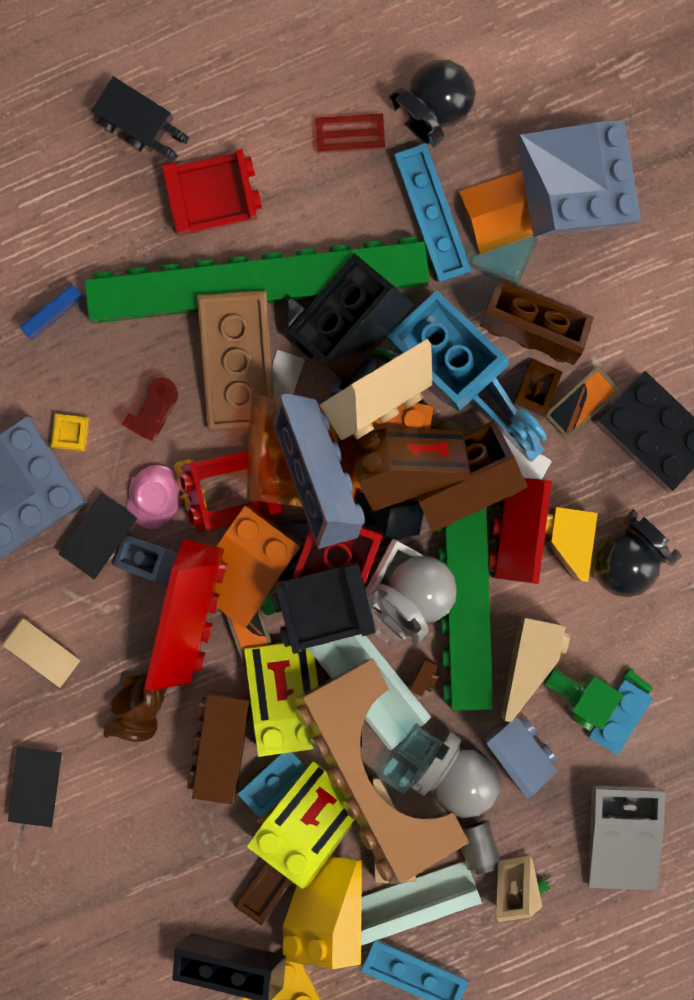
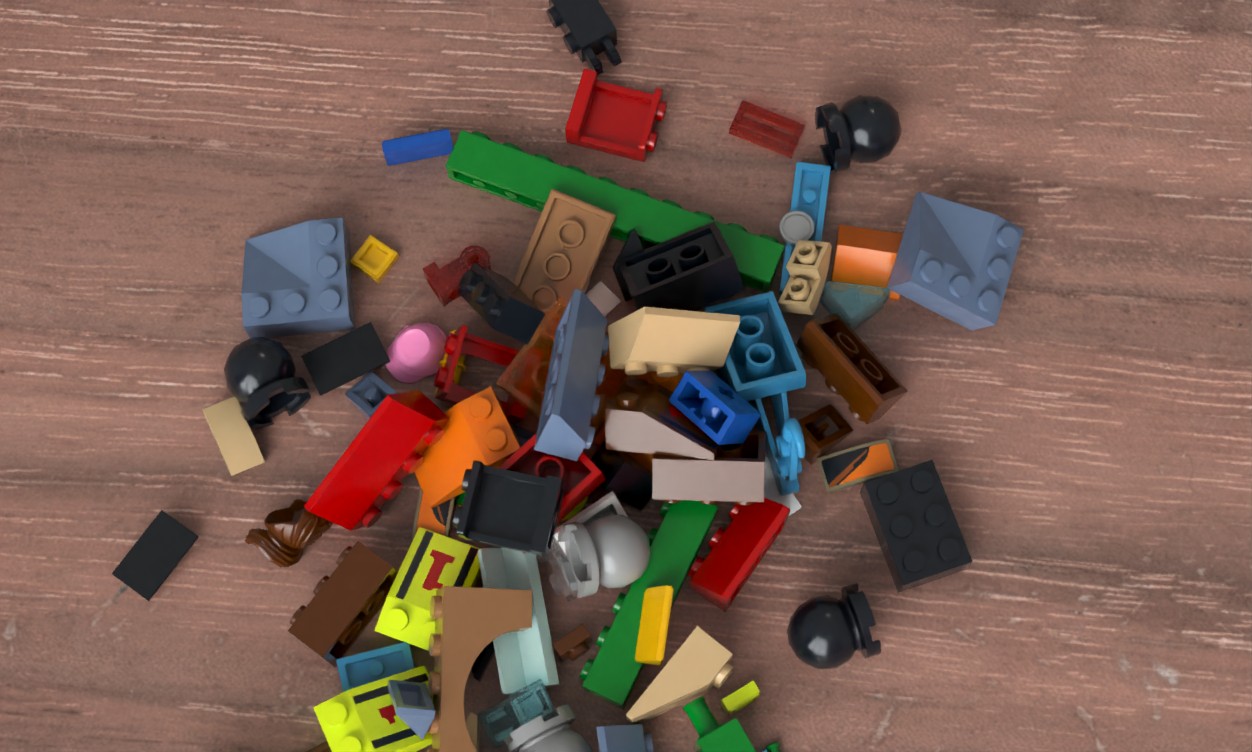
camera: 35 degrees right, 15 degrees down
(38, 592) = (263, 378): none -> black tile
(211, 425) = (500, 303): none -> black brick
(327, 802) = (412, 705): none -> slope
(425, 217) = (795, 227): none -> light grey piece
(446, 428) = (714, 407): none -> blue brick
(459, 261) = (807, 278): none -> tan slope
(486, 632) = (654, 625): none -> yellow slope
(571, 539) = (782, 578): yellow slope -> none
(584, 650) = (740, 698): none -> neon yellow tile

